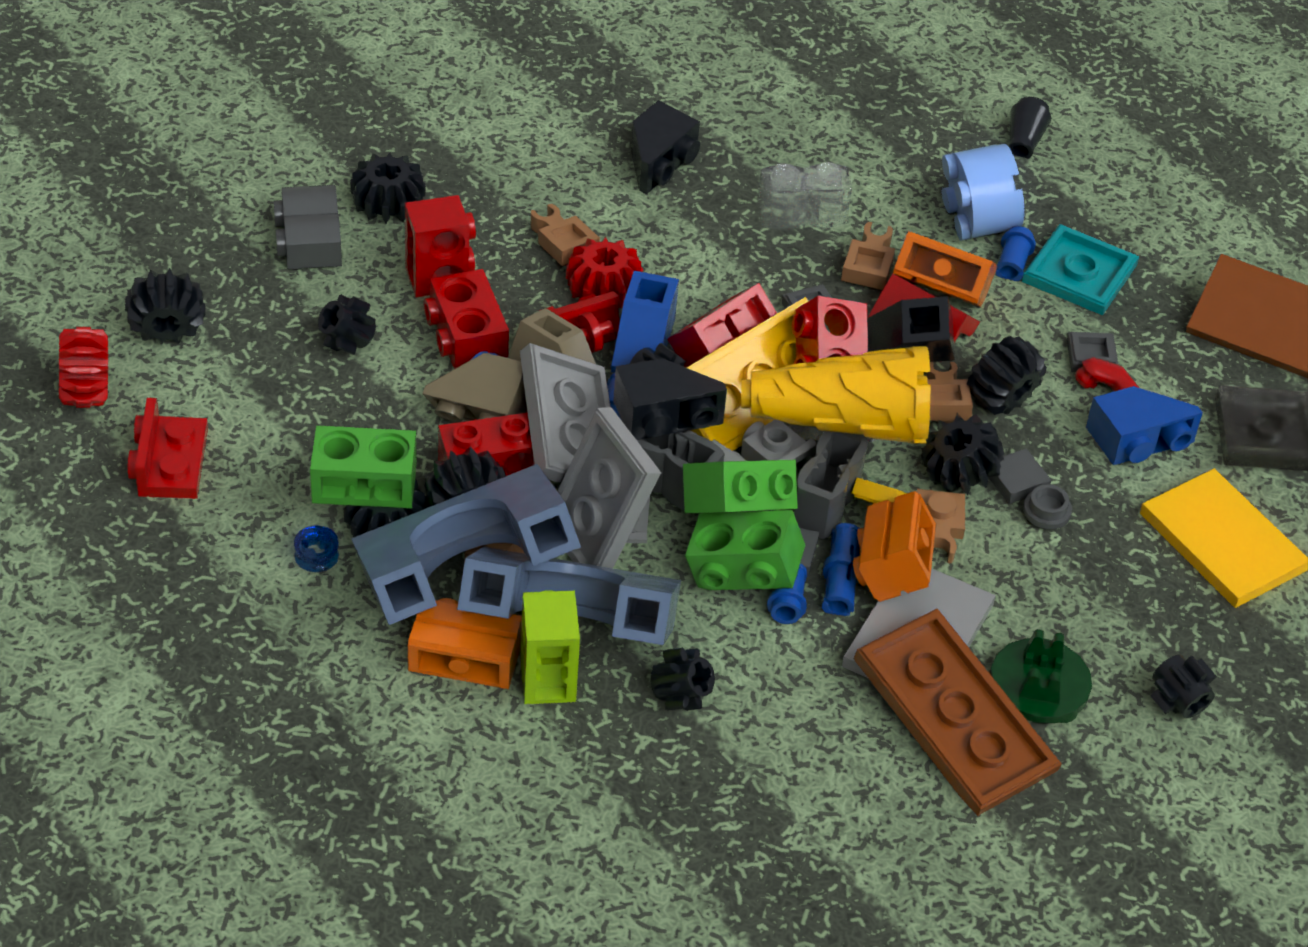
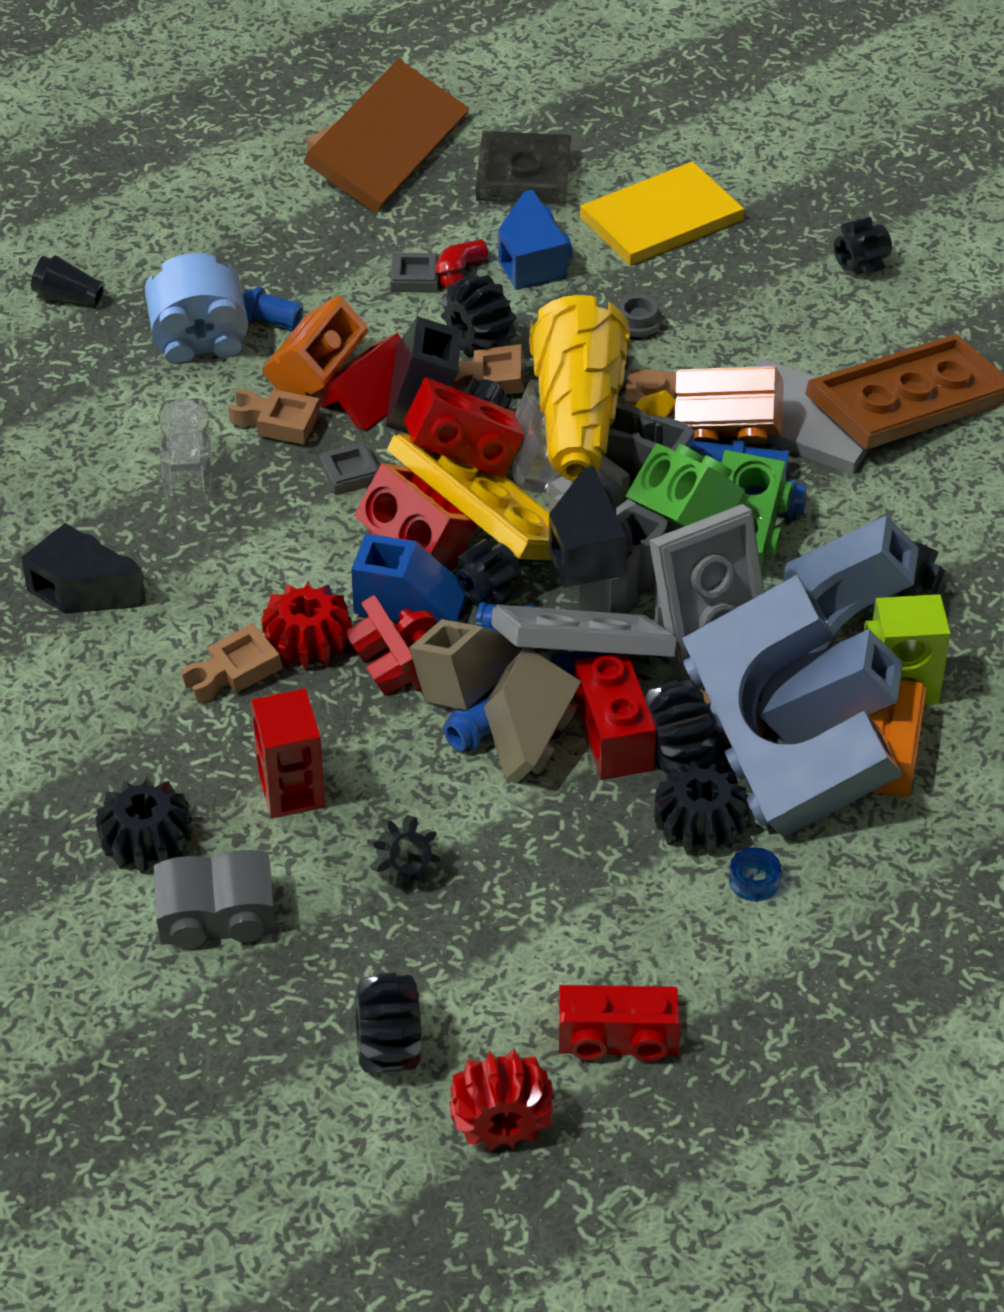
camera: 85 degrees left, 0 degrees up
(363, 467) = (689, 790): bright green brick -> none
(466, 317) = (389, 741): red brick -> none
(1043, 678) = (855, 336): dark green plate -> none
(1080, 269) = (292, 266): teal tile -> none

